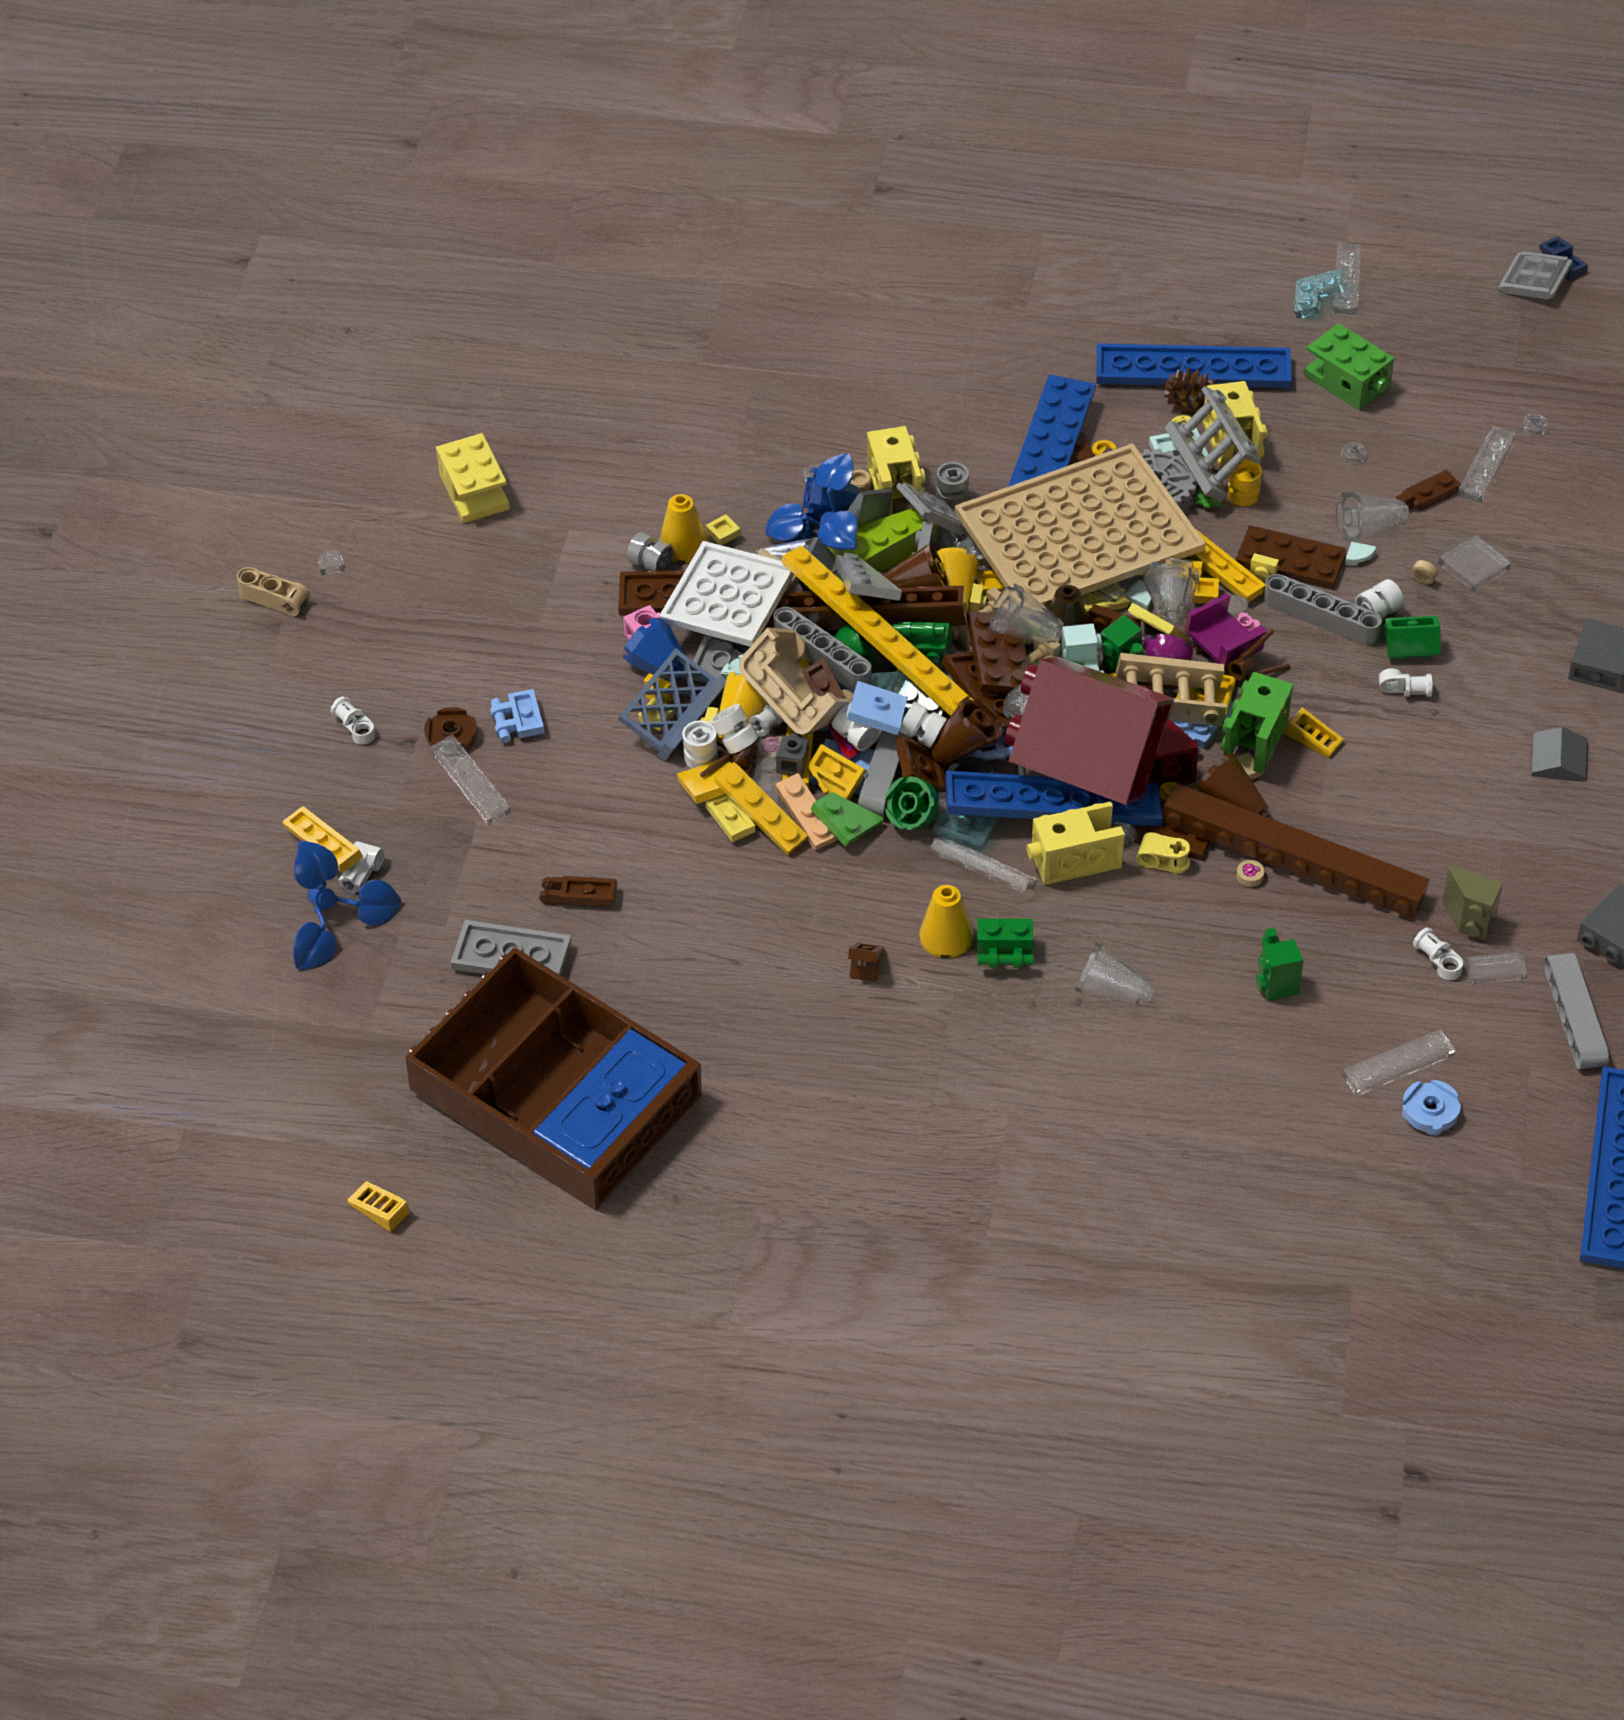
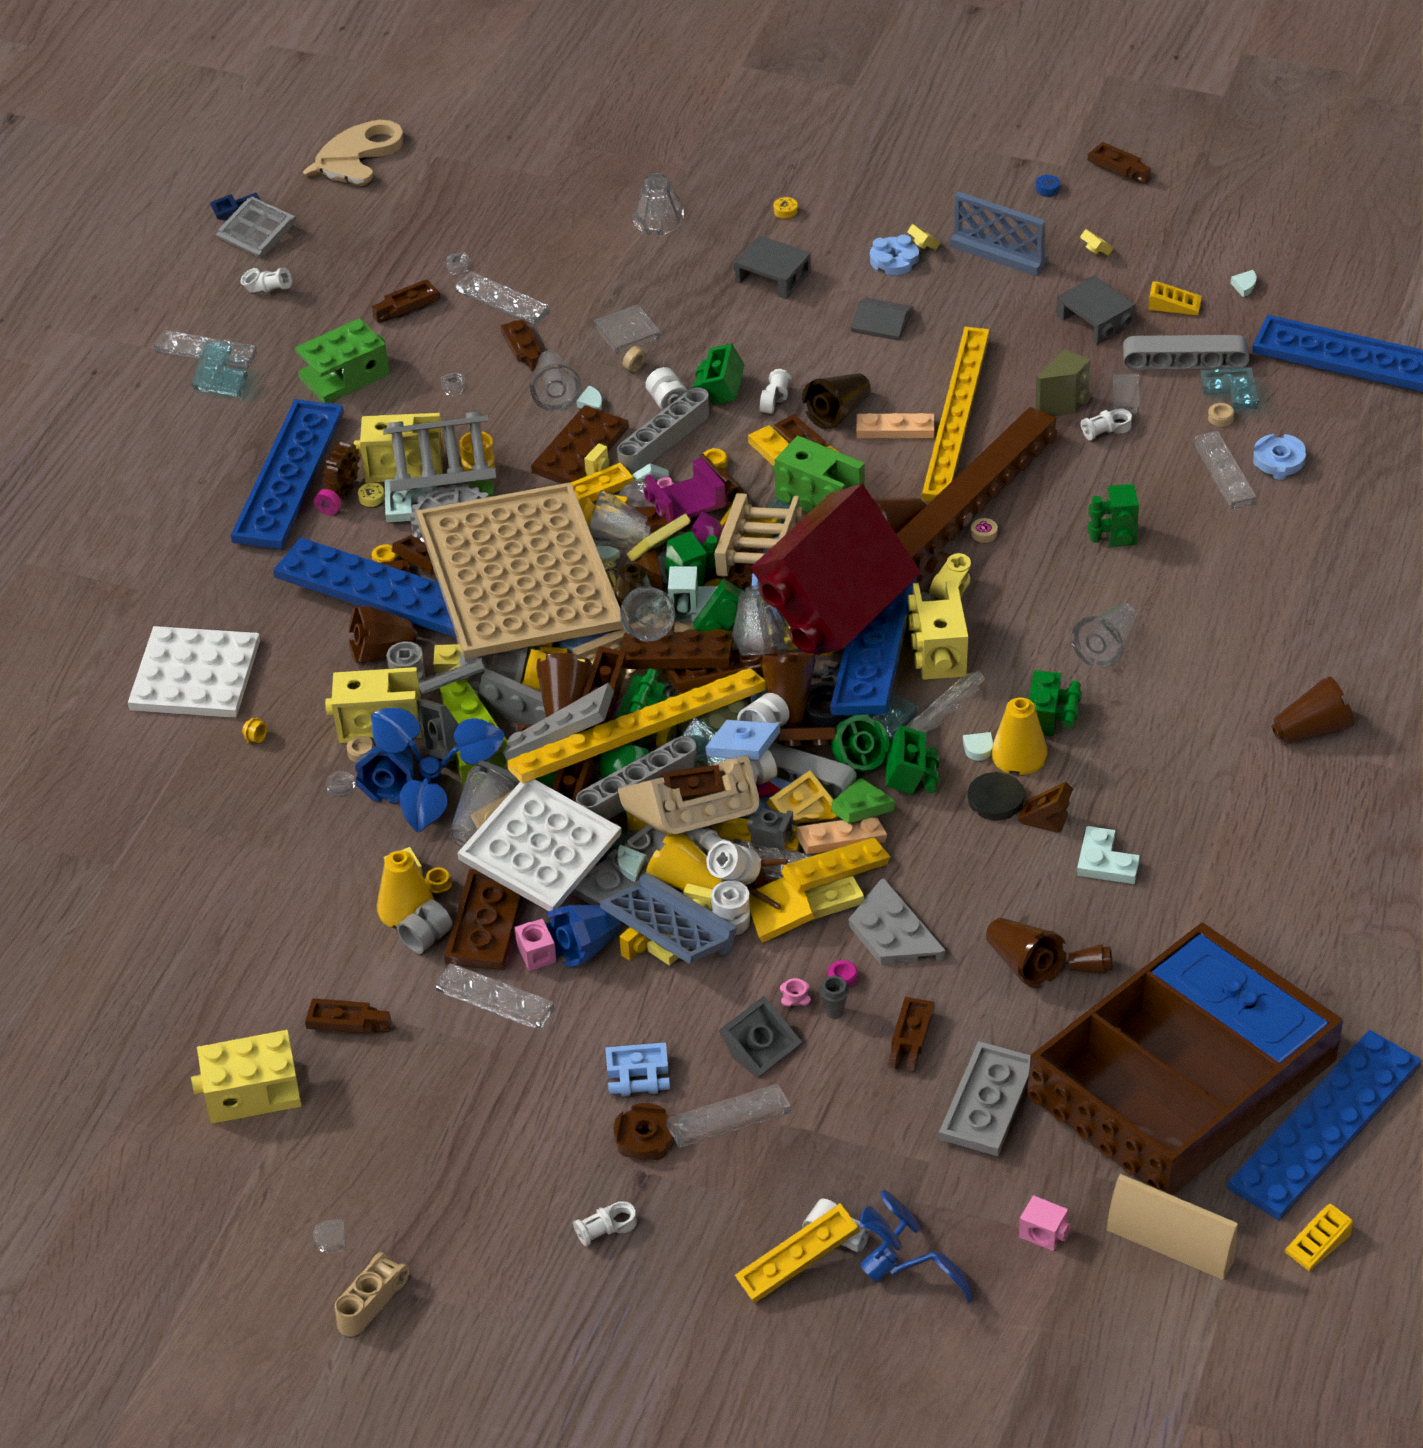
camera: 80 degrees left, 5 degrees down
(369, 1091) = (1172, 1227): none -> tan slope
(374, 1003) = (1044, 1223): none -> bright pink brick
(515, 1204) = (1324, 1125): none -> blue plate
(550, 526) = (346, 1017): none -> reddish brown hinge
(560, 789) = (759, 1037): none -> dark grey slope
(589, 615) = (495, 996): none -> clear plate
(604, 826) = (834, 995): none -> dark grey cone
(617, 807) = (795, 993): none -> bright pink plate
(645, 838) = (845, 970): none -> dark pink tile
(677, 955) = (1027, 950): none -> reddish brown cone
(683, 1012) = (1092, 959): none -> reddish brown cone
(706, 865) = (892, 929): none -> light grey wing
(816, 1005) = (1101, 862): none -> light aqua plate
(863, 409) = (254, 730): none -> yellow plate
(883, 921) = (996, 795): none -> pearl dark grey tile
(902, 843) = (910, 762): none -> green brick
(930, 360) = (194, 672): none -> white plate
(987, 457) = (376, 633): none -> reddish brown cone
(1032, 1157) = (1314, 713): none -> reddish brown cone
(1159, 399) = (327, 502): none -> dark pink tile
(1258, 609) = (650, 469): none -> light aqua tile
(1298, 656) = (717, 457): none -> yellow tile
(1330, 697) = (767, 443): none -> yellow plate
(1347, 711) = (793, 426): none -> reddish brown plate
(1390, 786) = (895, 425): none -> light nougat plate
(1407, 729) = (834, 398): none -> dark brown cone
(1426, 829) = (956, 412): none -> yellow plate
(1458, 290) = (266, 281): none -> white connector
(1461, 397) = (405, 300): none -> reddish brown hinge
(1488, 1053) = (1221, 414): none -> tan tile
(1537, 1059) = (1236, 382): none -> clear light blue plate

